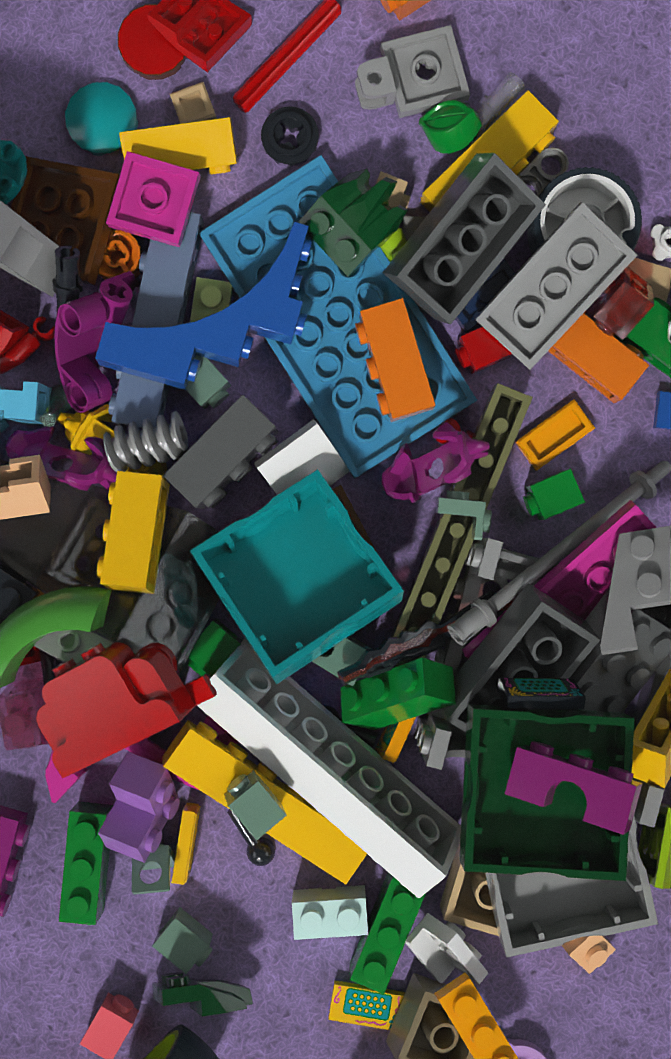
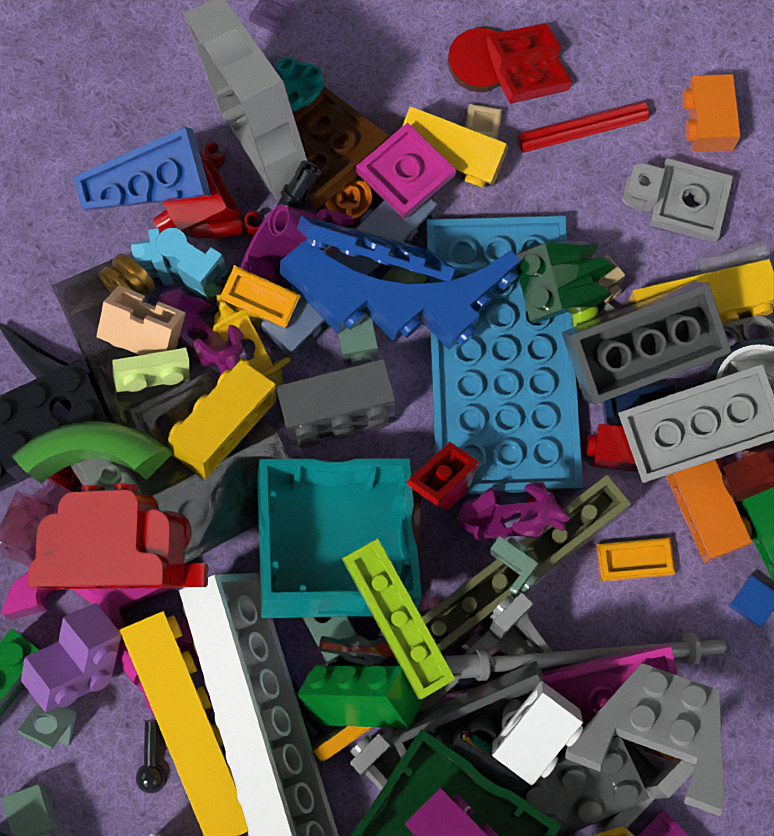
camera: 30 degrees right, 15 degrees down
(35, 532) = (151, 370): none -> yellowish green plate
(96, 399) = (260, 297): none -> light orange tile
(98, 115) = (398, 88): teal dish -> none
(146, 445) = (278, 357): light grey piece -> none
(174, 292) = (376, 247): none -> blue wing
(186, 843) = (90, 725): yellow tile -> none
(213, 648) = (227, 559): green brick -> none
(254, 804) = (176, 711): sand green brick -> none
(294, 120) = (558, 178): black gear -> none
(301, 456) = (398, 440): white slope -> none
(357, 468) = (445, 476): none -> red slope
(395, 360) = (529, 411): orange brick -> none
(395, 622) = (398, 619): none -> lime plate
(450, 126) = (688, 252): green hat -> none
(553, 495) = (604, 609): green brick -> none
(569, 650) = (538, 734): none -> white brick

